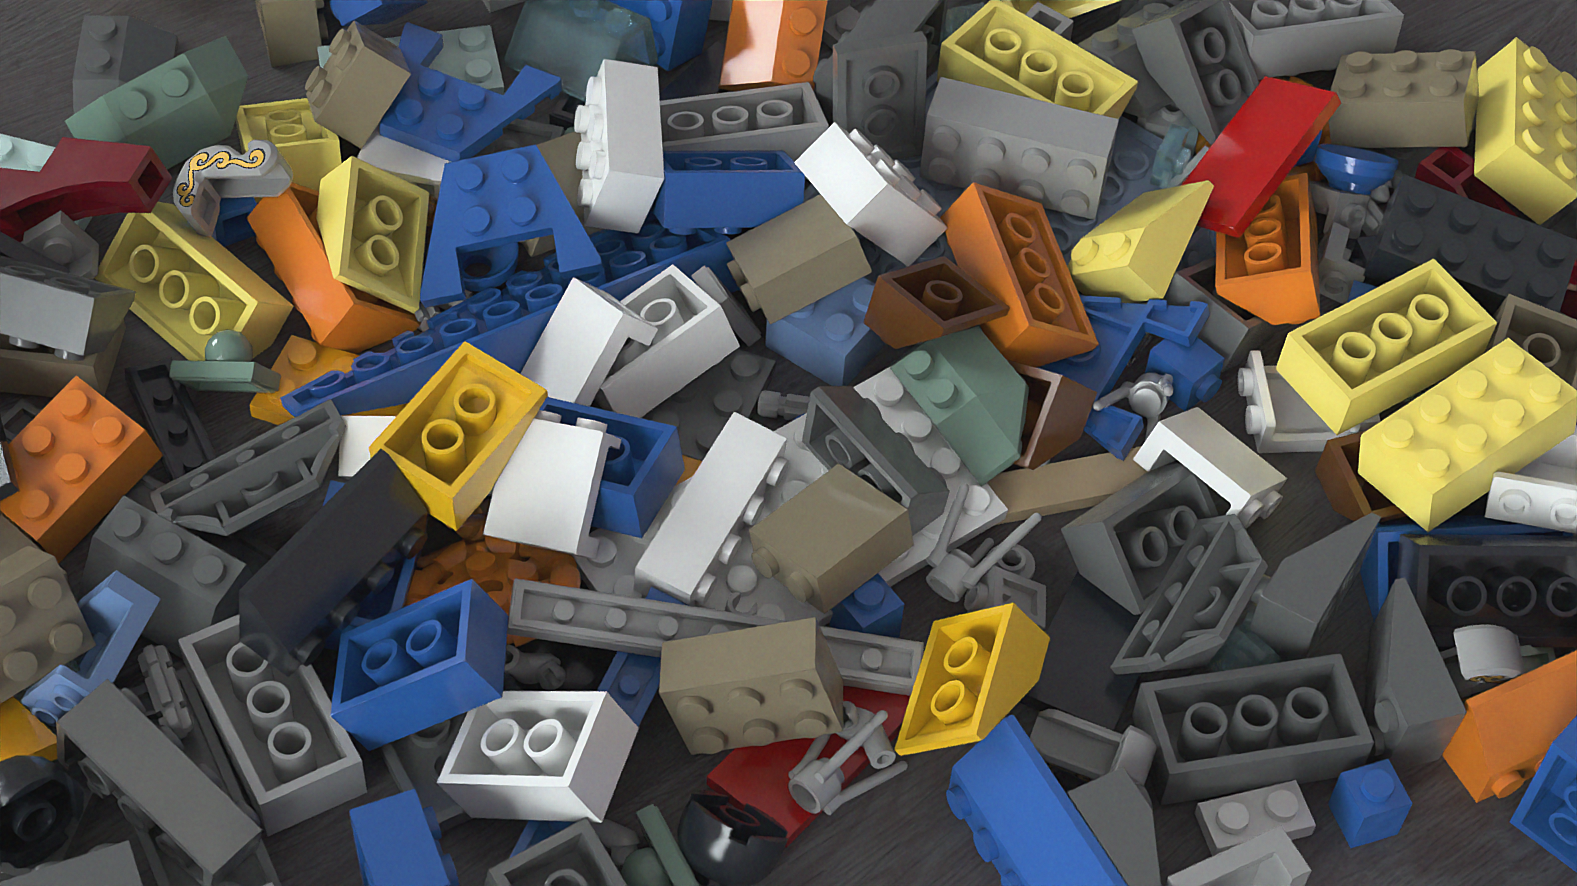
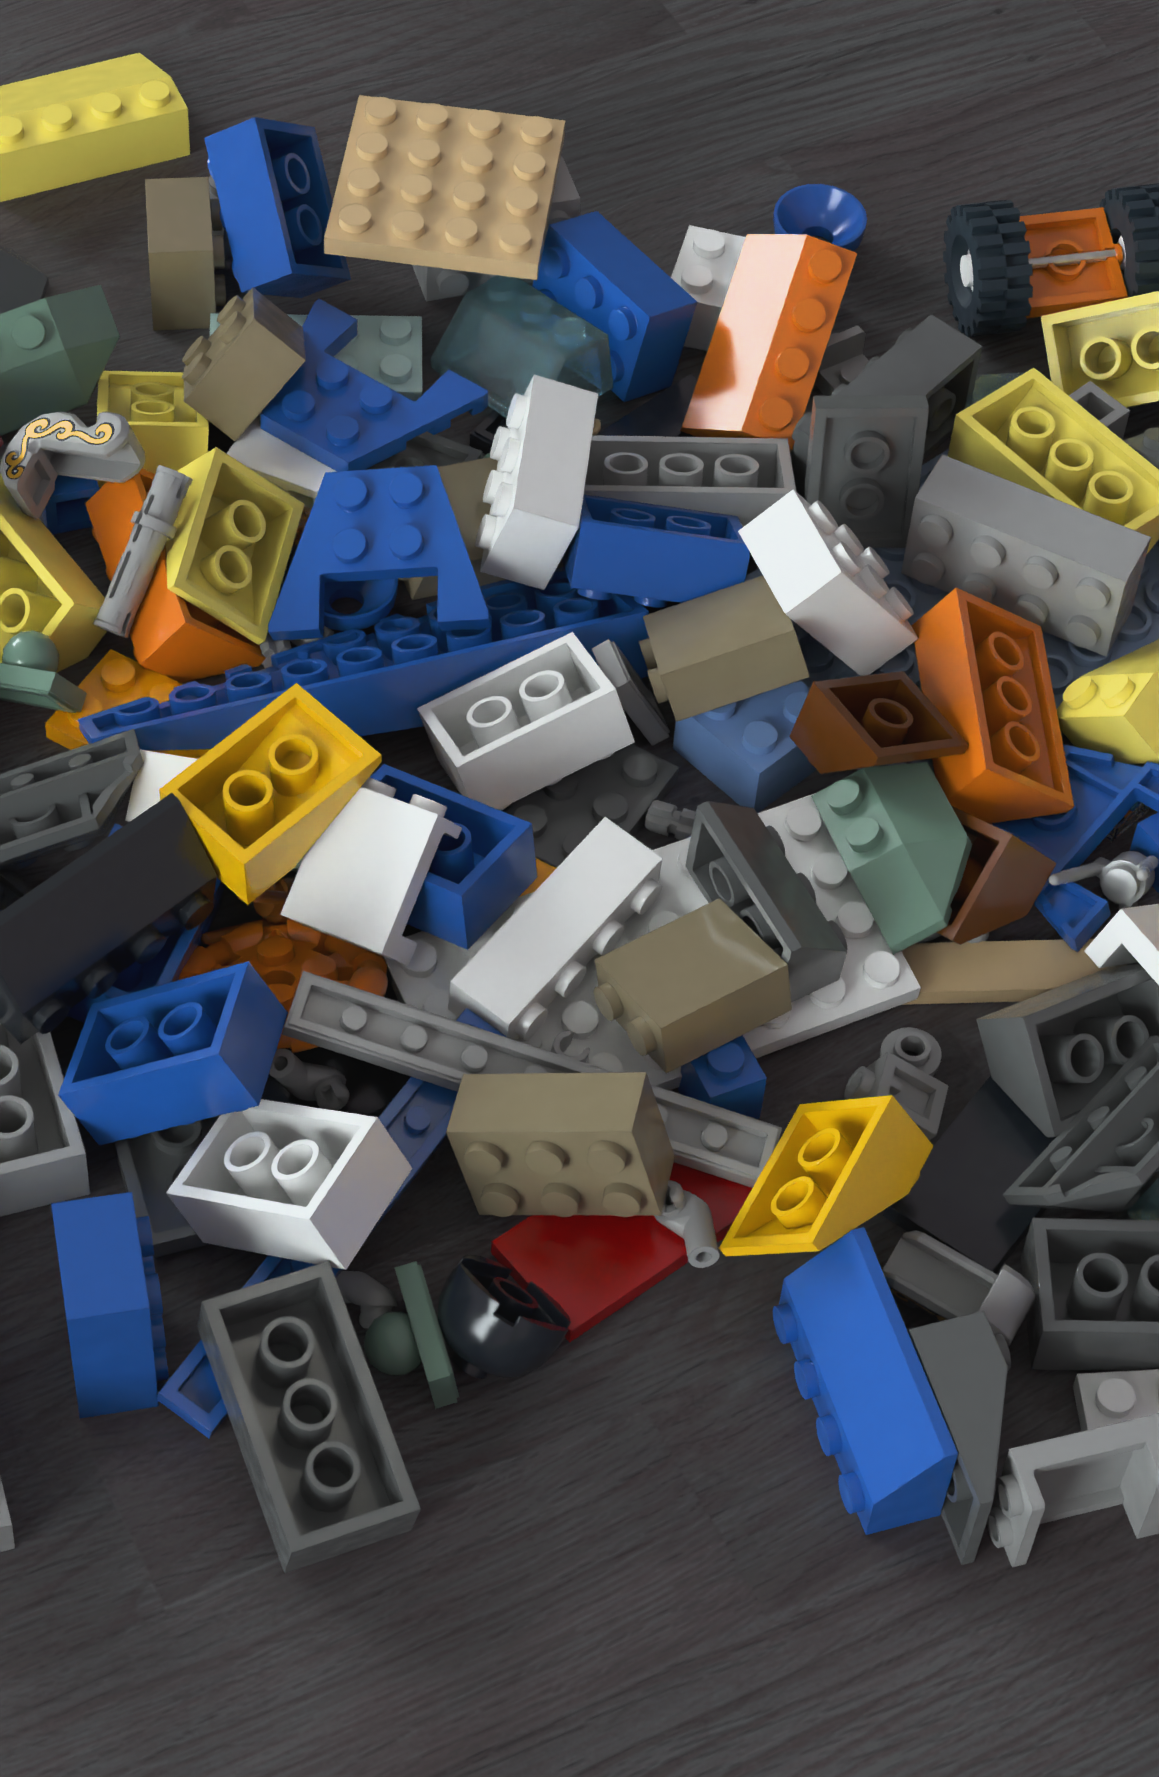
camera: 10 degrees right, 0 degrees up
(306, 250) = (146, 542): none -> light grey pin
(583, 343) = (445, 709): white panel -> none
(818, 783) = (620, 1271): light grey plant -> none
(958, 571) = (843, 1050): light grey plant -> none

